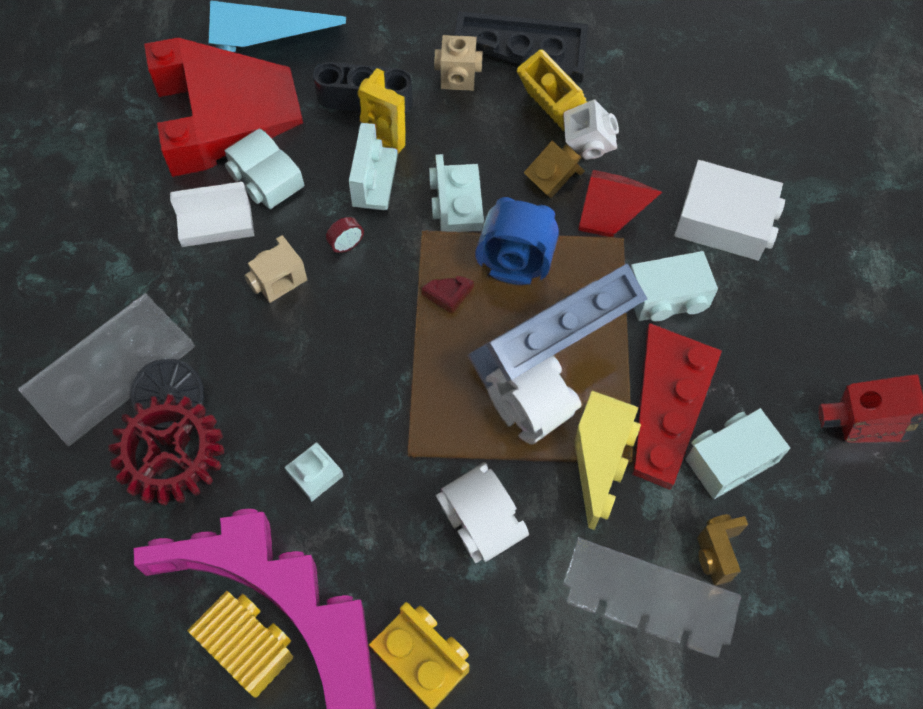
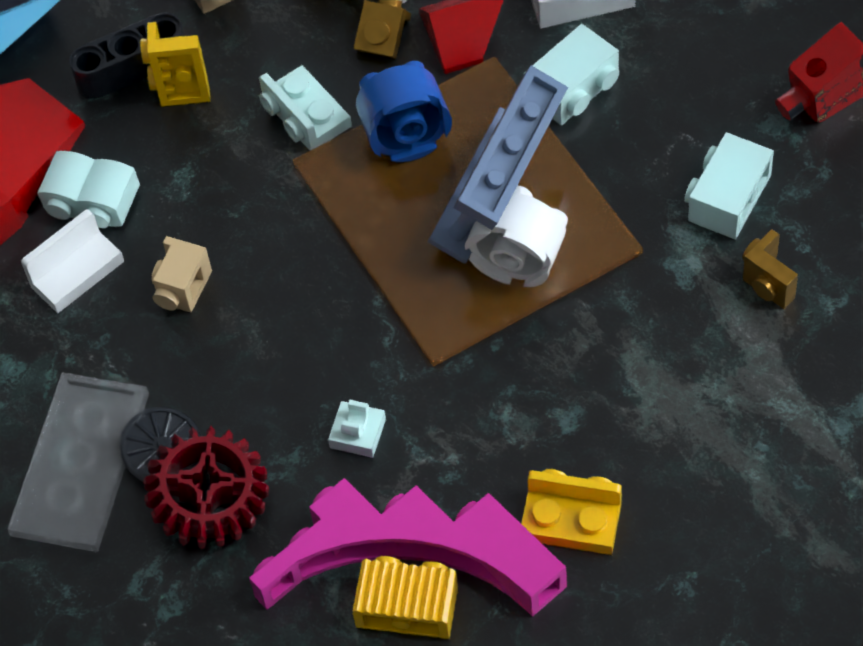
camera: 25 degrees left, 5 degrees down
(344, 234) = (221, 204): tile -> none
(371, 170) = (203, 129): light aqua bracket -> none
(448, 292) = (364, 199): dark red tile -> none
(484, 512) = (543, 362): white brick -> none
(599, 445) = (607, 252): light yellow slope -> none
(642, 588) = (725, 346): clear windscreen -> none
(672, 395) = (641, 176): red wing -> none

